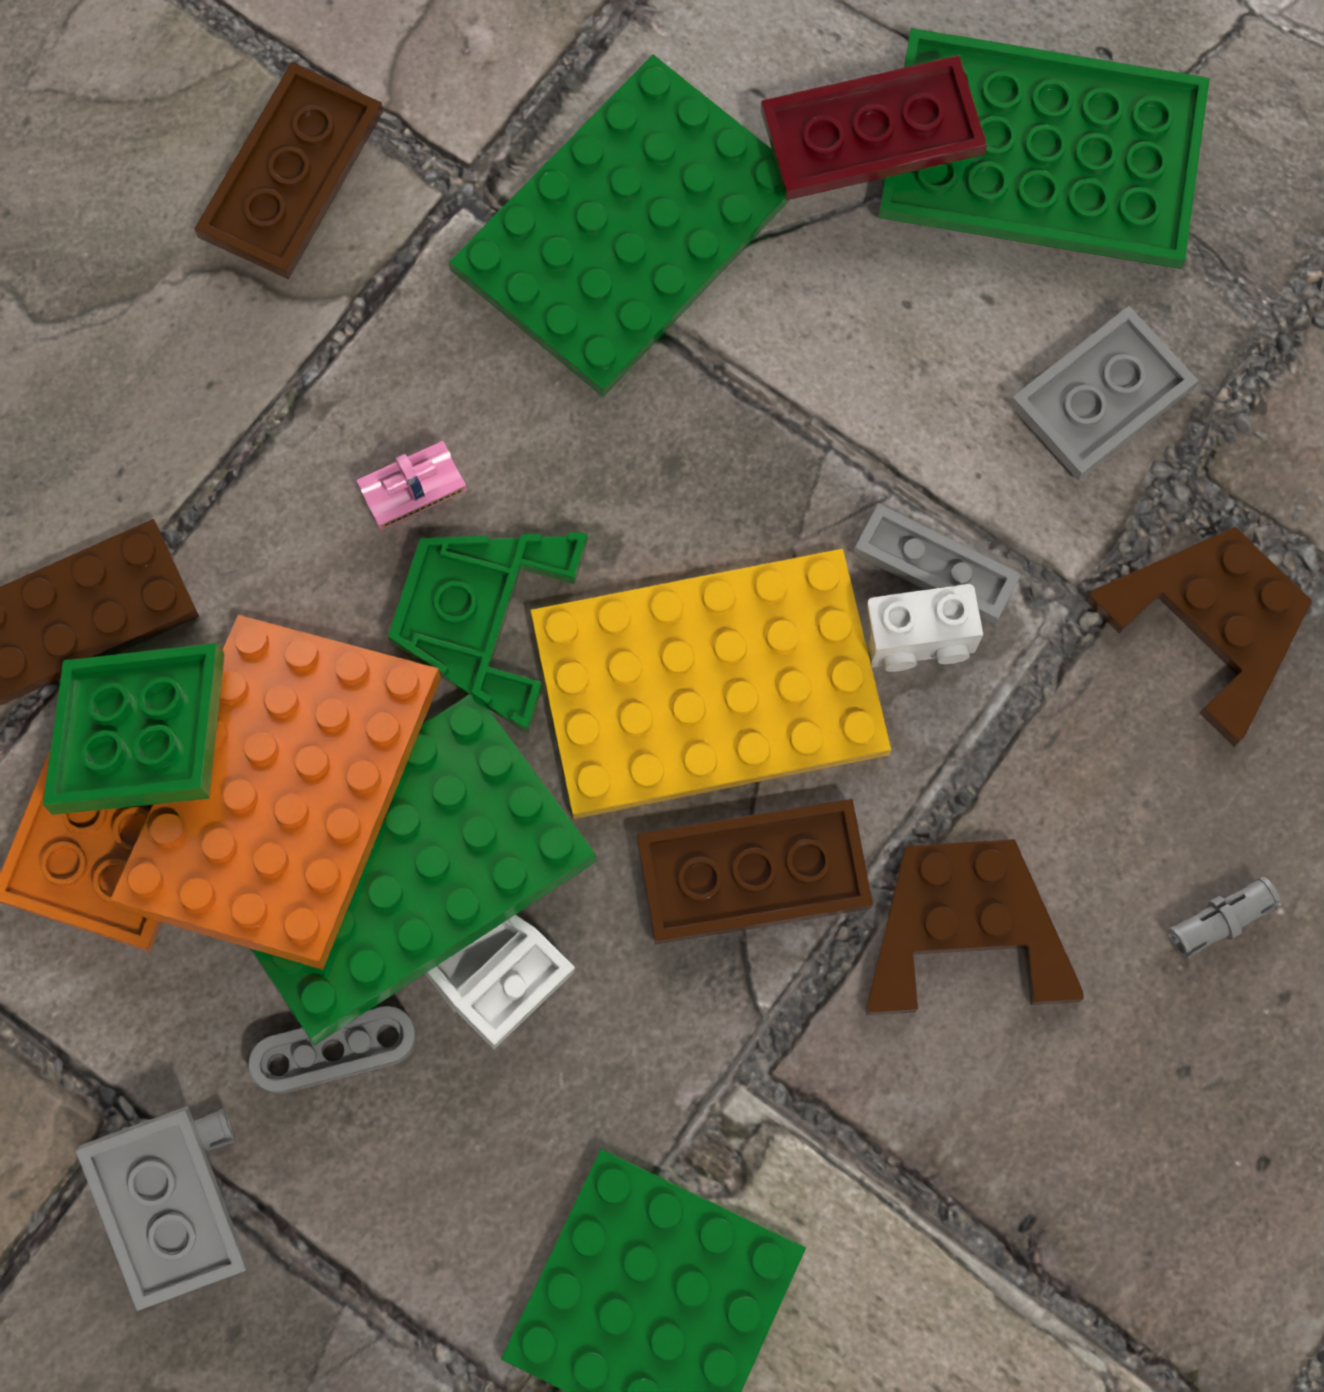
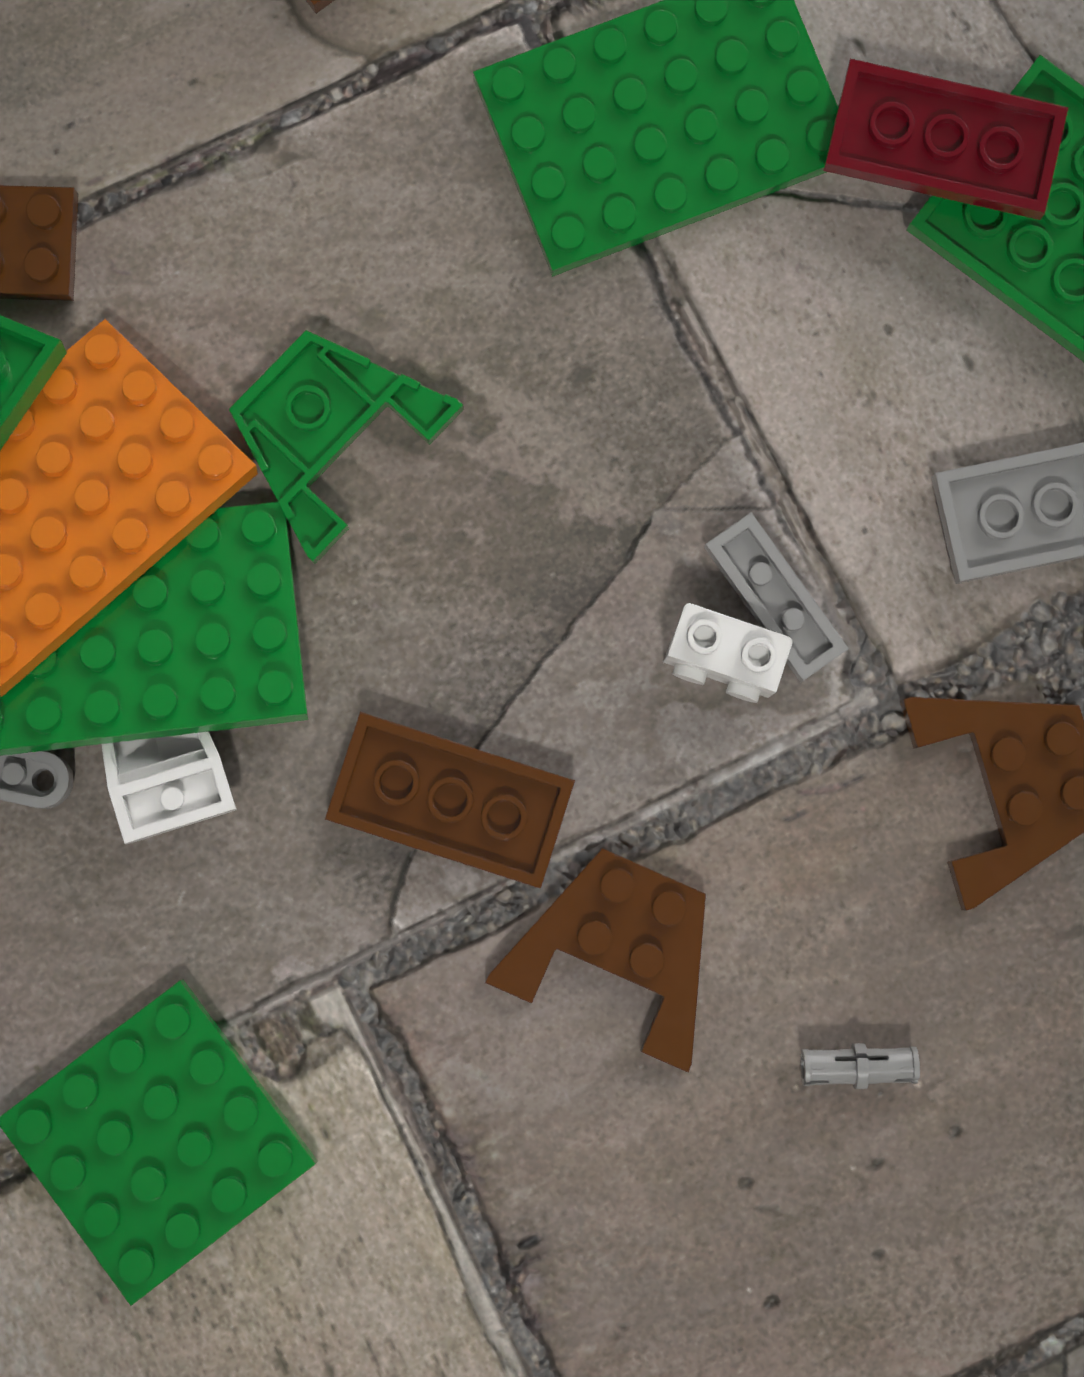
camera: 25 degrees right, 10 degrees up
(411, 485) = (323, 275): bright pink hips -> none
(709, 683) = (505, 601): yellow plate -> none

